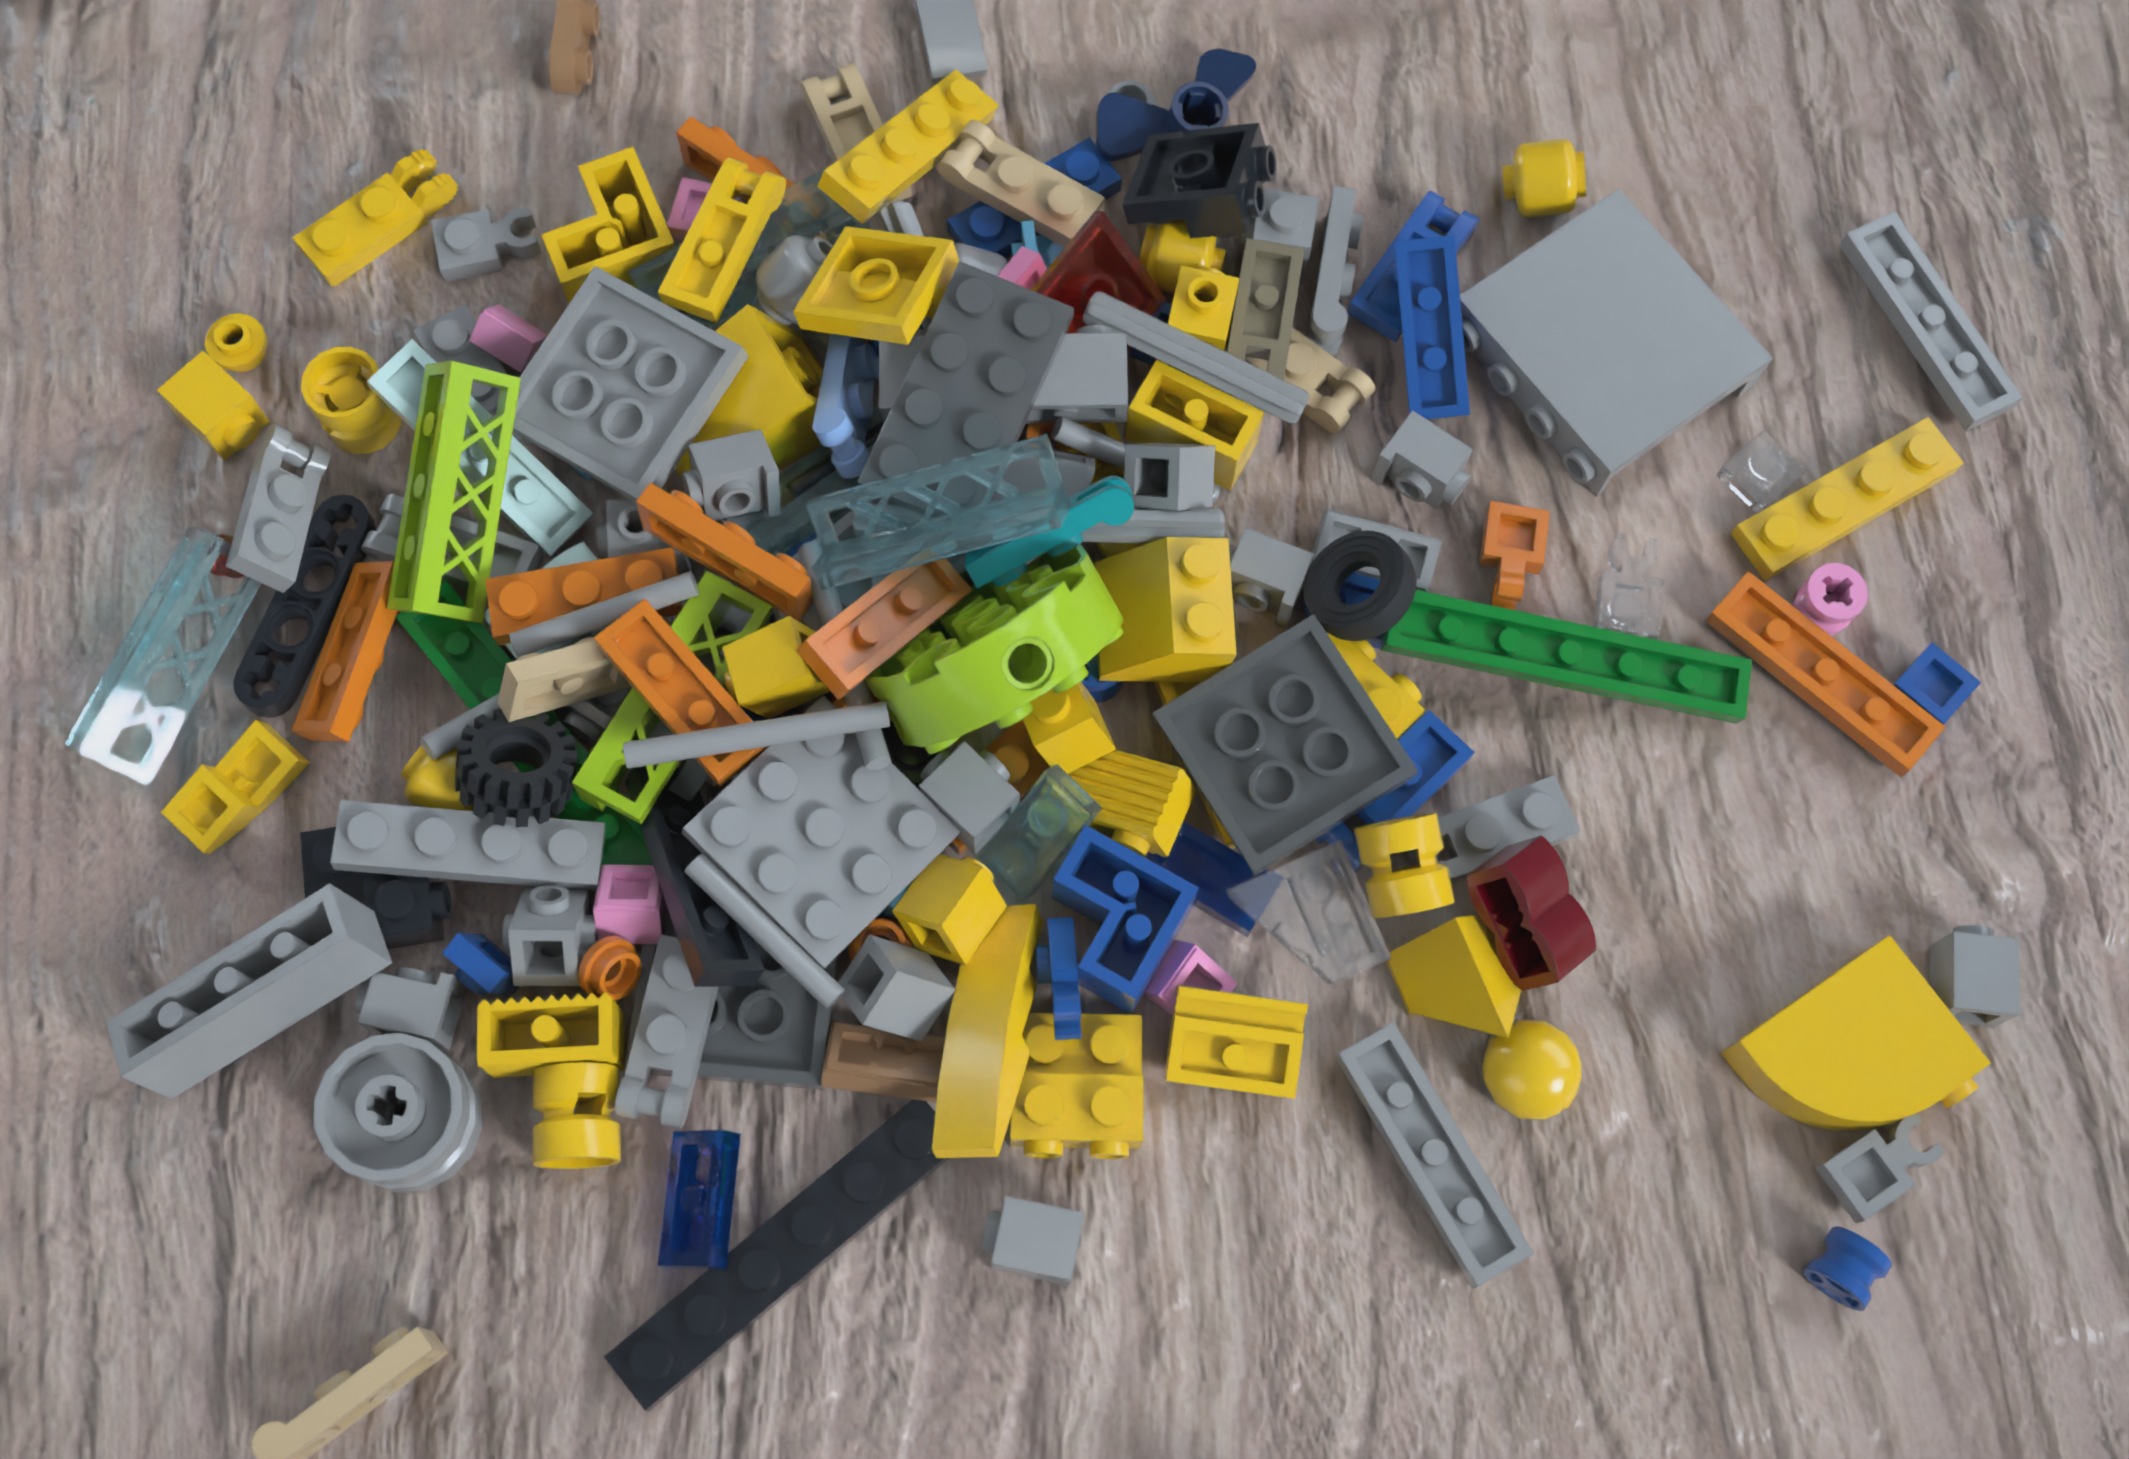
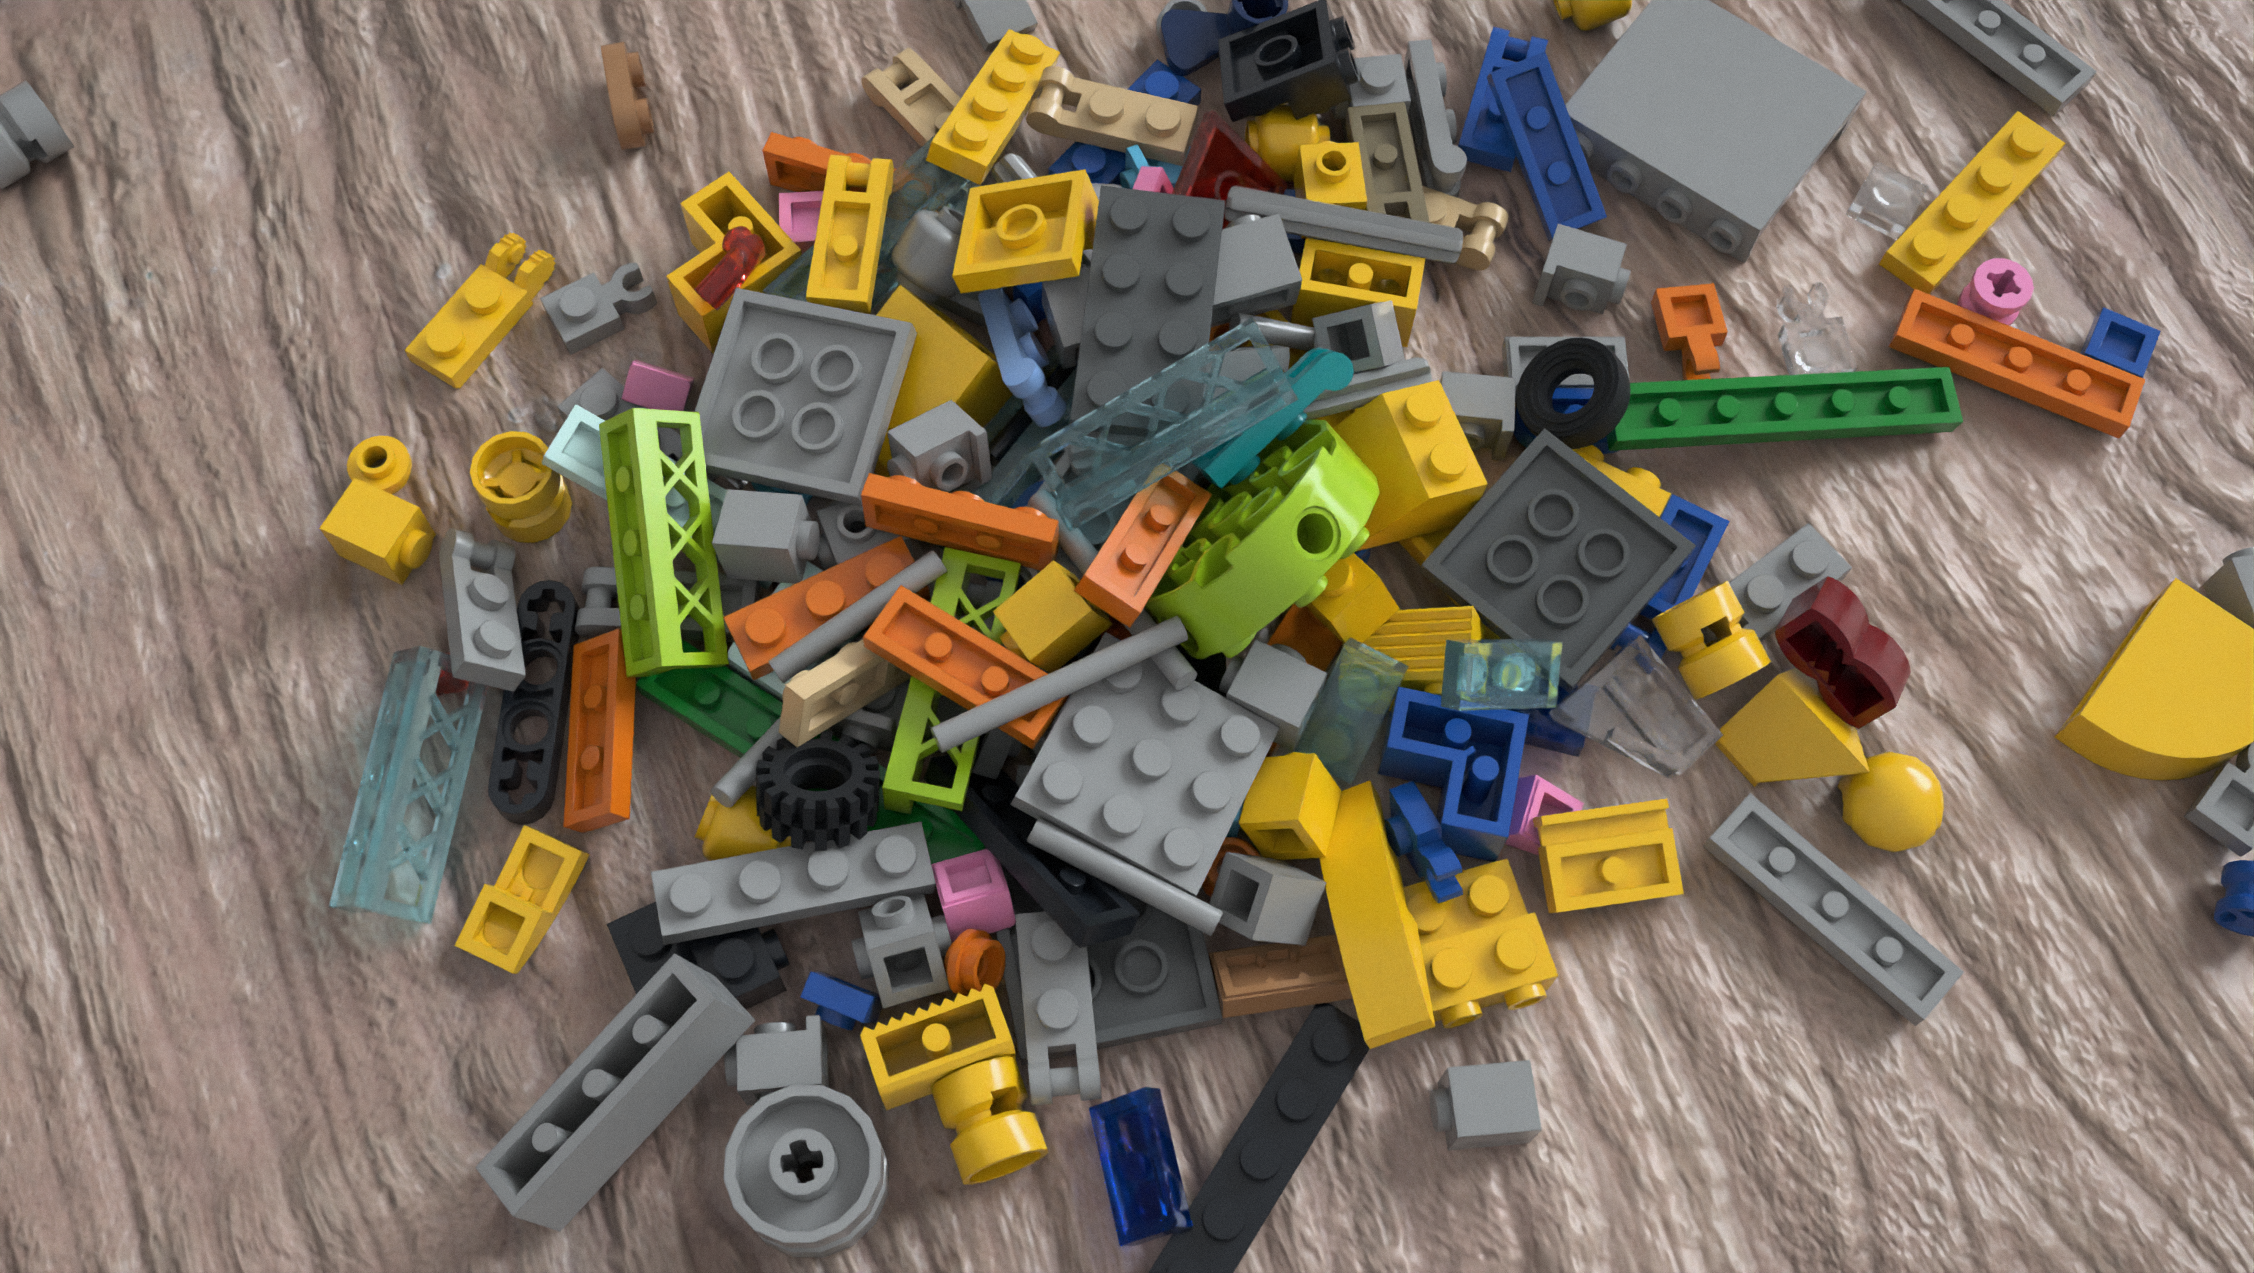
camera: 15 degrees left, 5 degrees down
(547, 512) = (765, 536): none -> light grey brick
(614, 236) = (743, 256): none -> clear red arm
(1181, 842) = (1501, 674): none -> clear light blue plate

